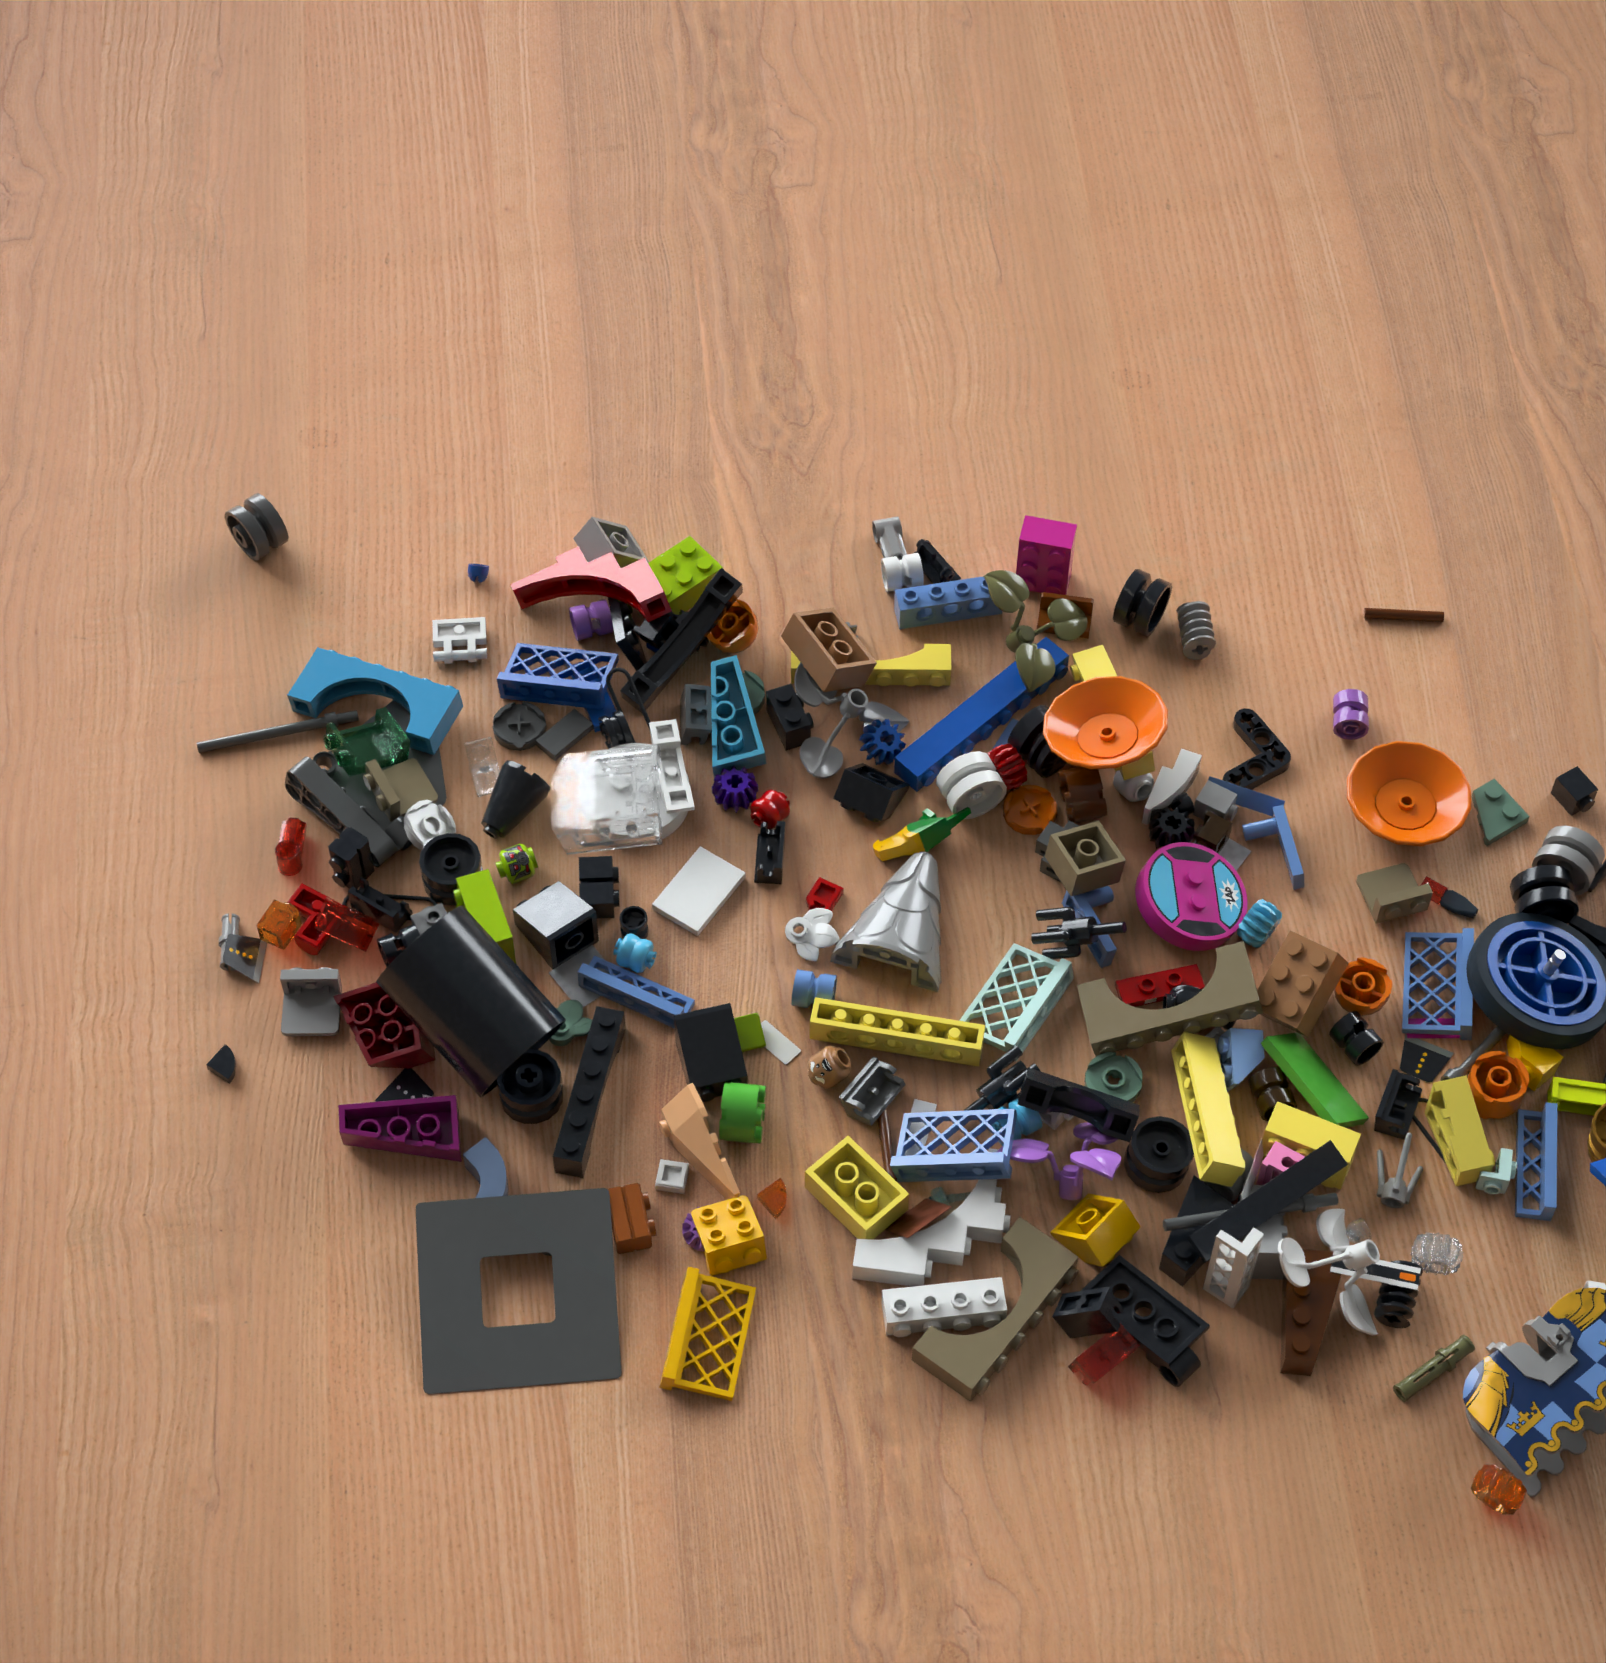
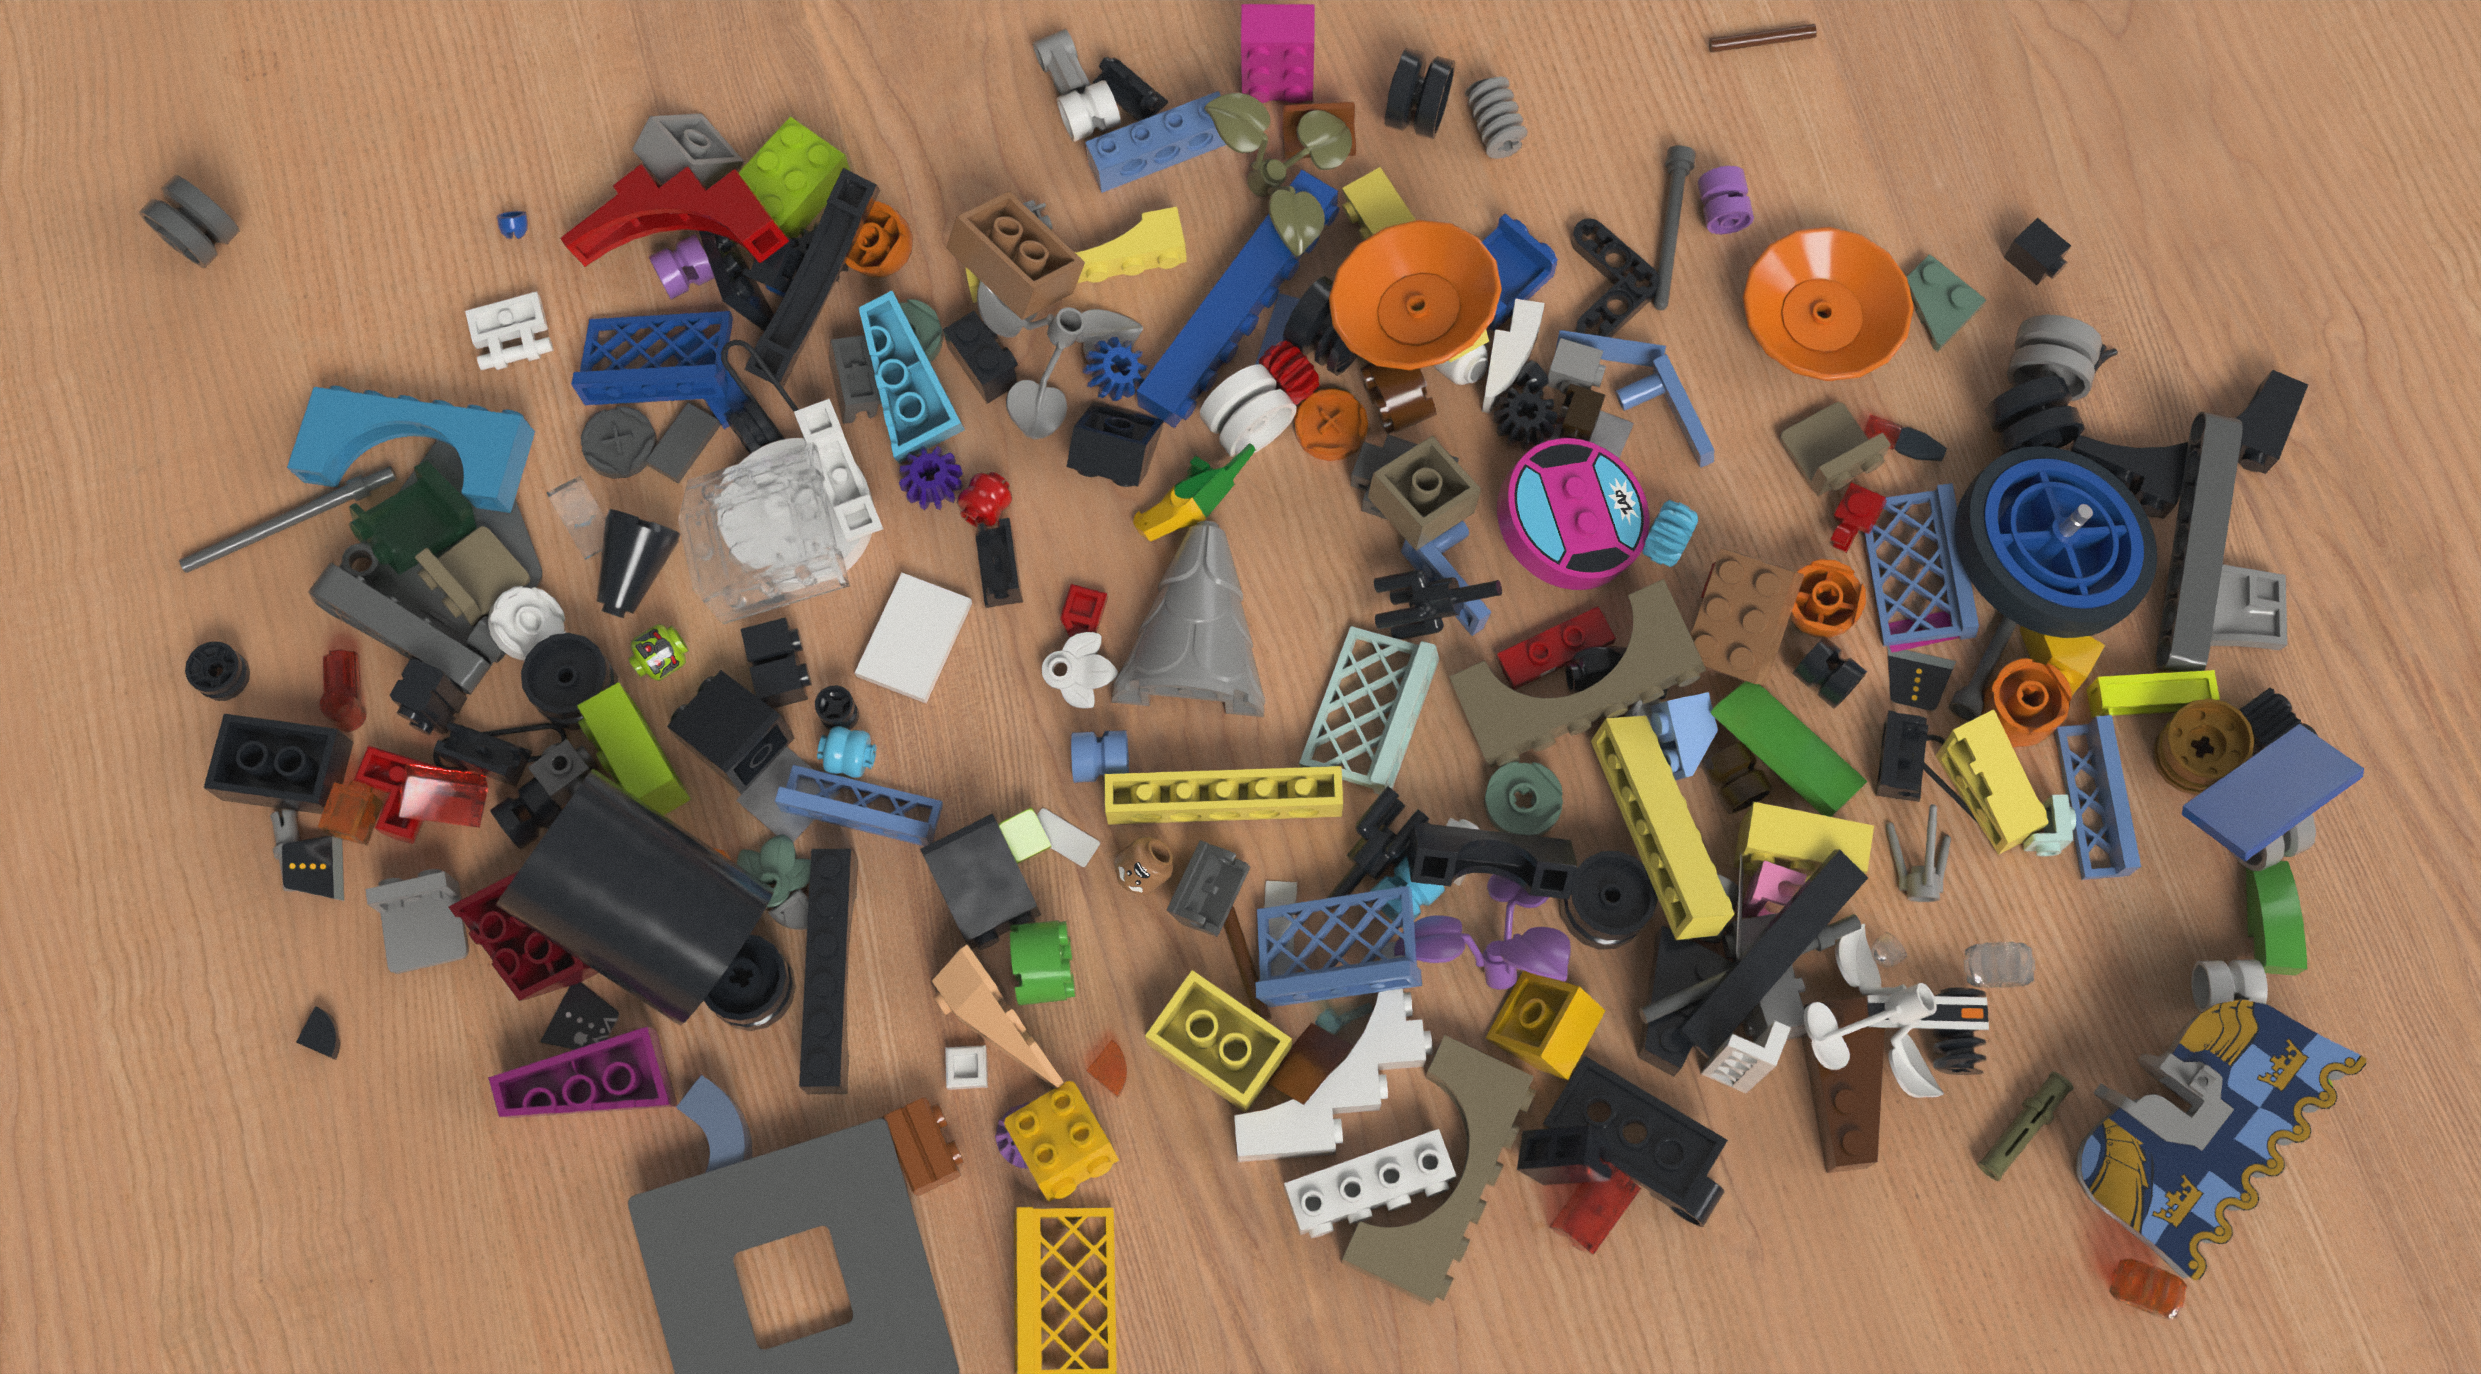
camera: 10 degrees left, 15 degrees up
(203, 808) = (202, 671): none -> black wheel
(236, 881) = (277, 763): none -> black brick
(571, 1051) = (792, 912): none -> light grey tile
(1187, 729) = (1521, 263): none -> blue panel
(1323, 685) = (1680, 162): none -> dark grey piece
(1400, 938) = (1856, 512): none -> red plate

